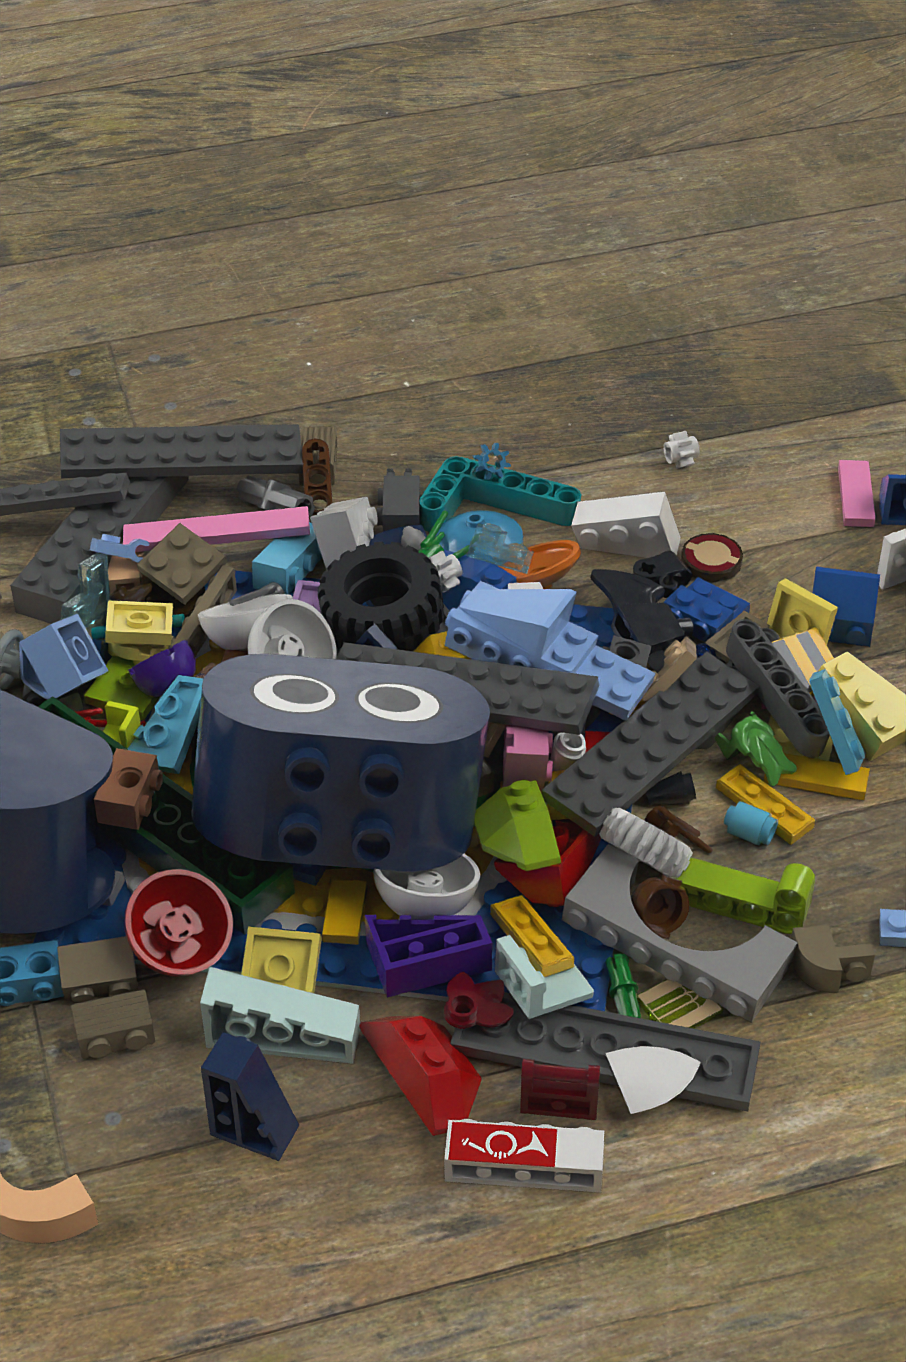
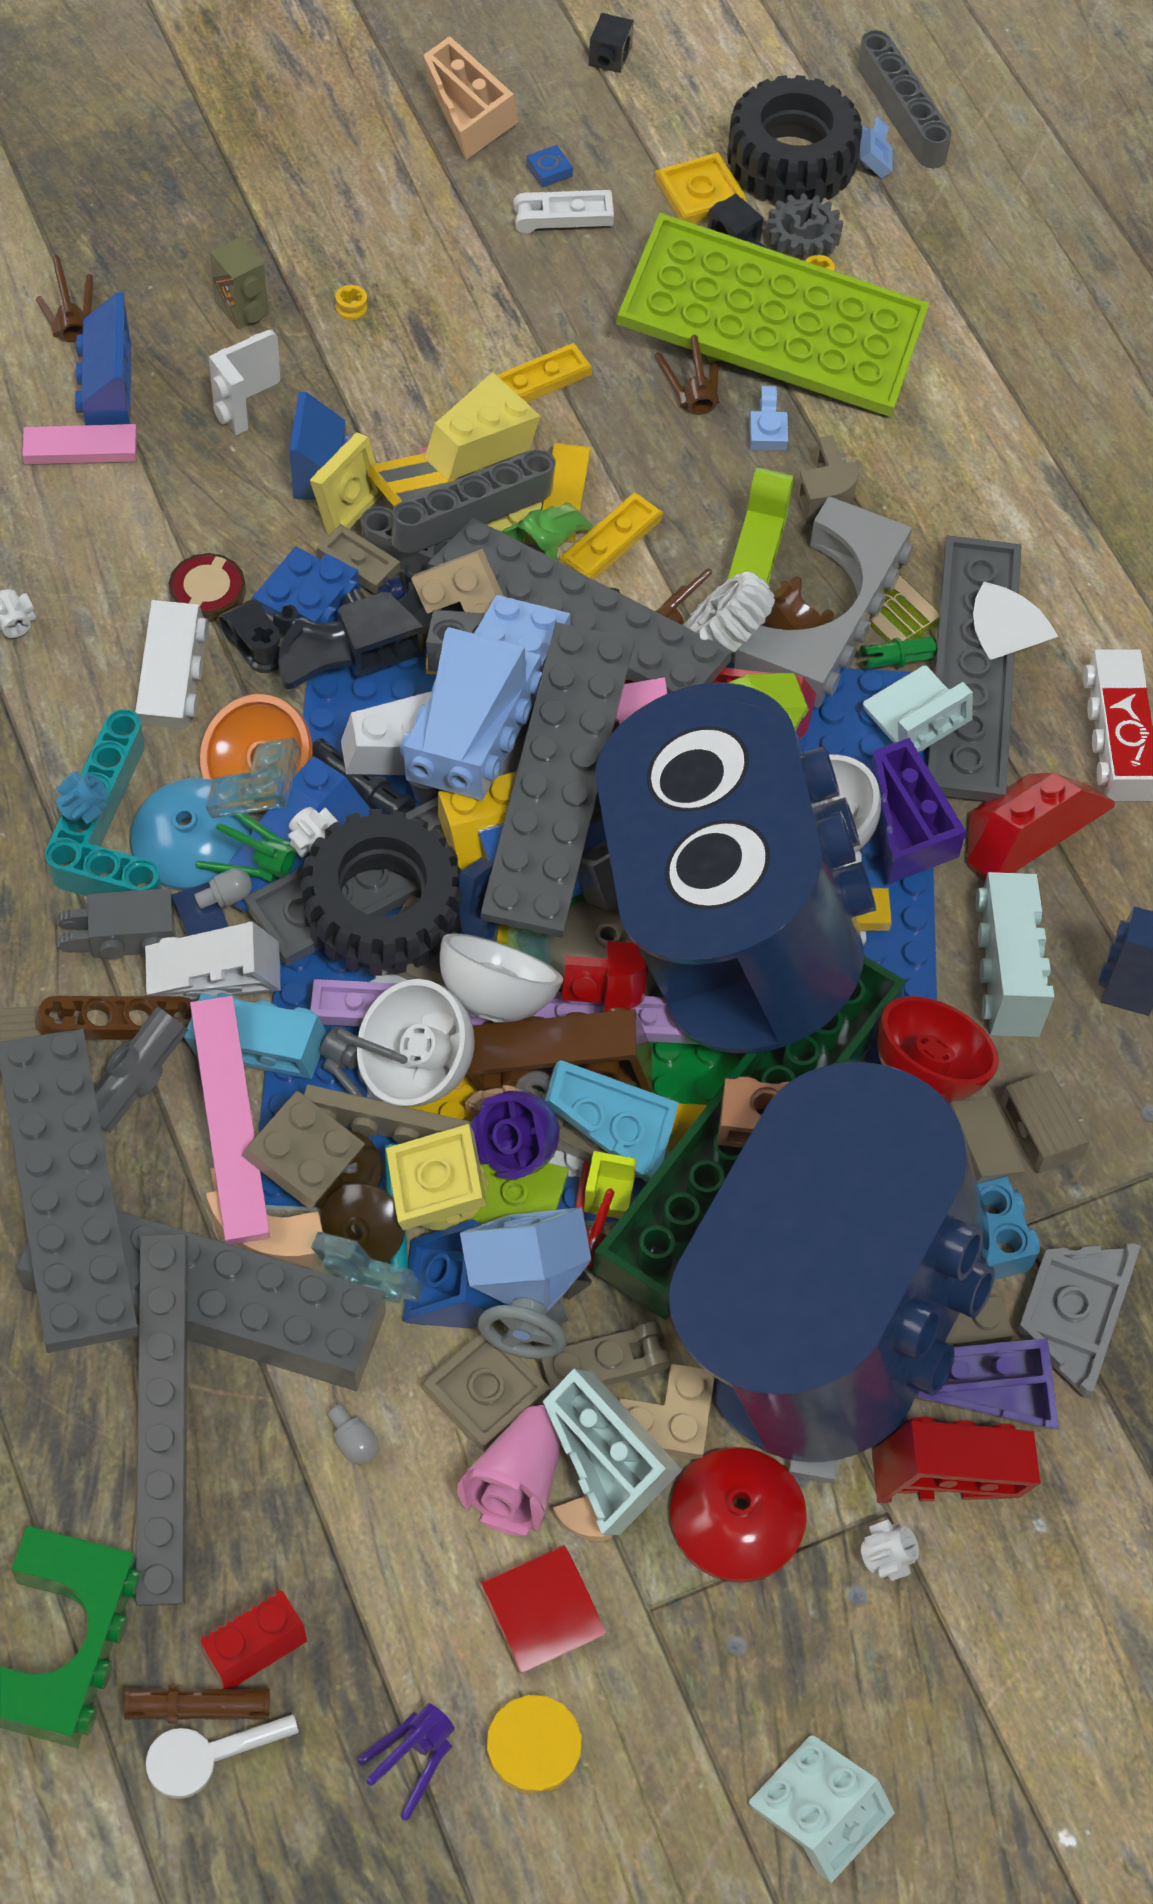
camera: 100 degrees left, 15 degrees up
(111, 545) = (292, 1233): light blue plate -> none
(282, 957) = (942, 961): light yellow plate -> none
(479, 1001) = (956, 767): dark red plate -> none
(533, 934) = (862, 721): yellow tile -> none
(560, 1099) = (1047, 685): dark red plate -> none
(750, 823) = (653, 544): medium azure brick -> none
(837, 721) = (527, 434): medium azure wing -> none

